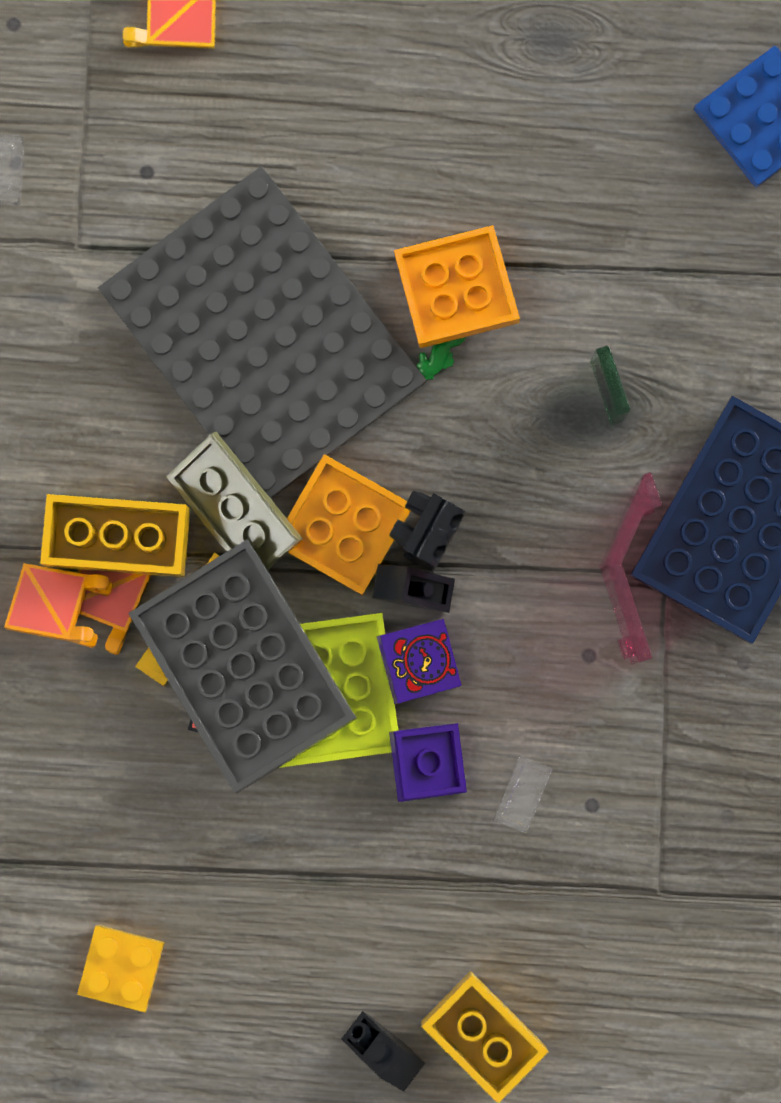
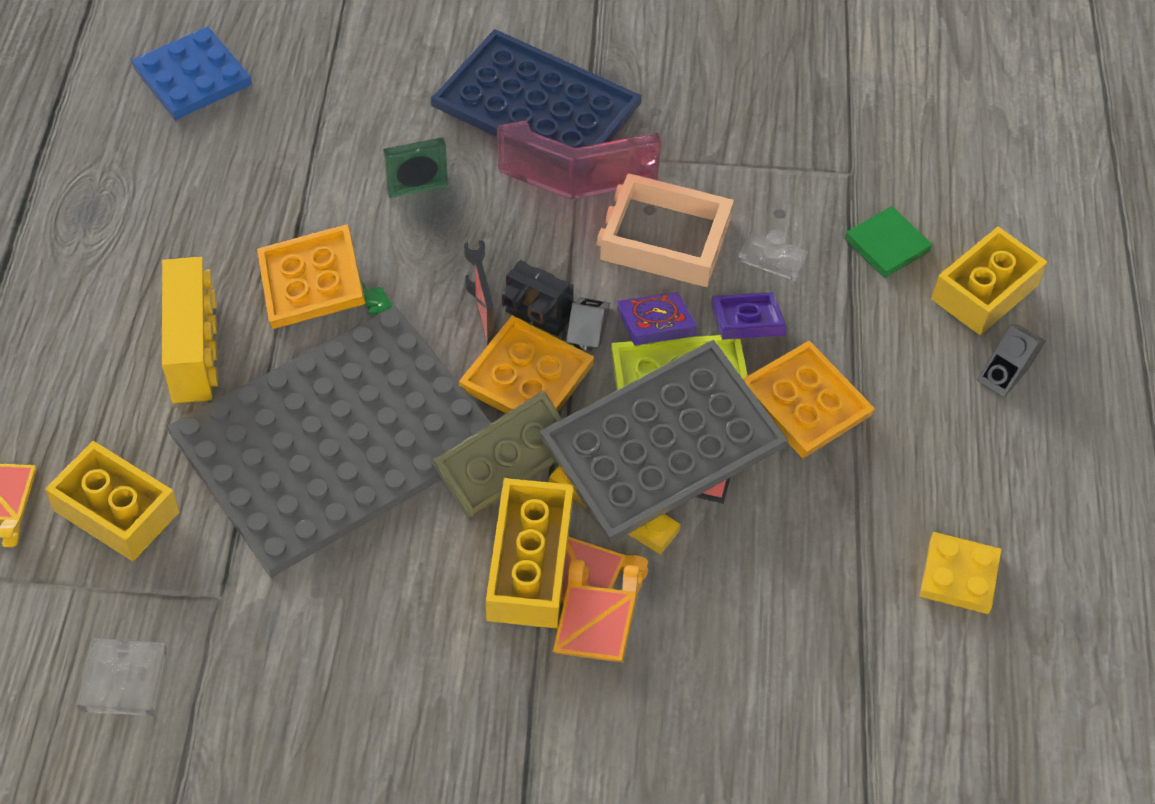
camera: 95 degrees left, 30 degrees down
(161, 127) = (112, 500): none -> yellow brick
(315, 820) = (808, 398): none -> light orange plate
(368, 168) = (188, 330): none -> yellow brick
(451, 465) = (480, 289): none -> black flag
(551, 928) = (888, 241): none -> green tile
(562, 615) = (658, 259): none -> light nougat window

